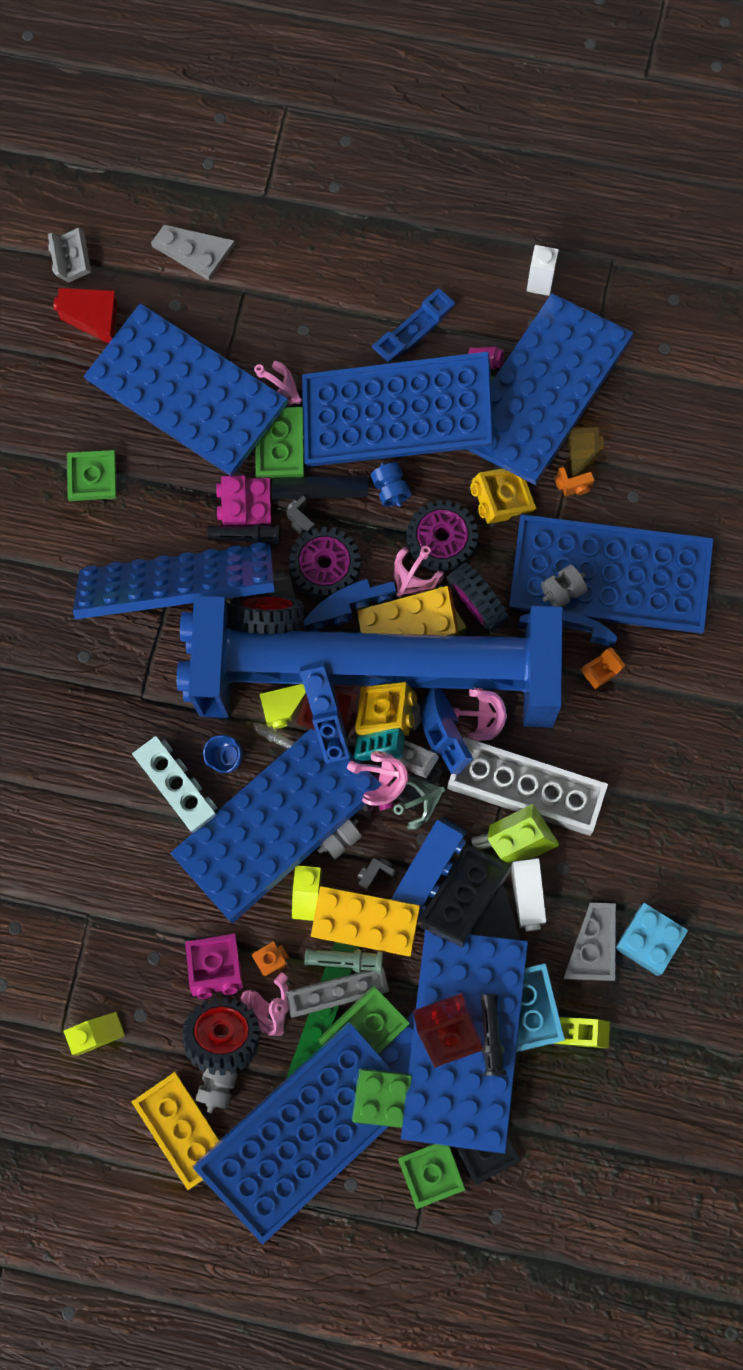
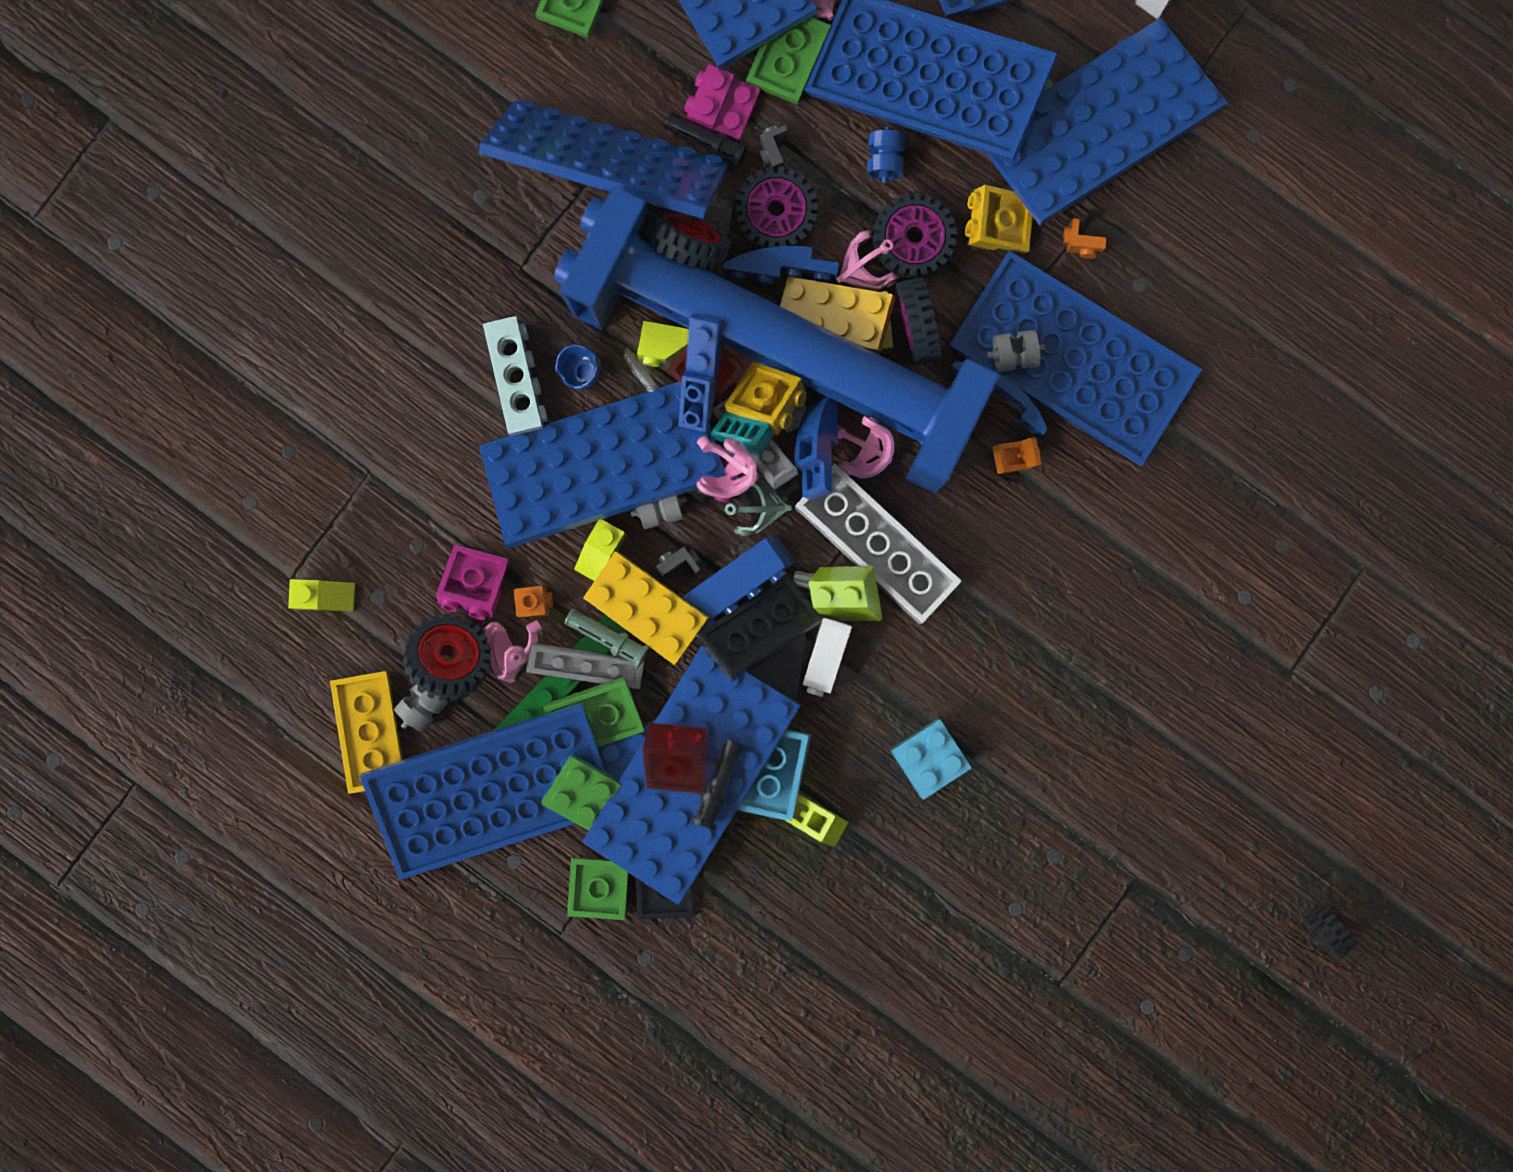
camera: 25 degrees right, 10 degrees up
(320, 487) = (809, 123): black tile -> none
(495, 353) = (1065, 61): dark pink cone -> none
(583, 449) = (1111, 208): clear yellow slope -> none
(595, 945) = (870, 738): light grey wing -> none

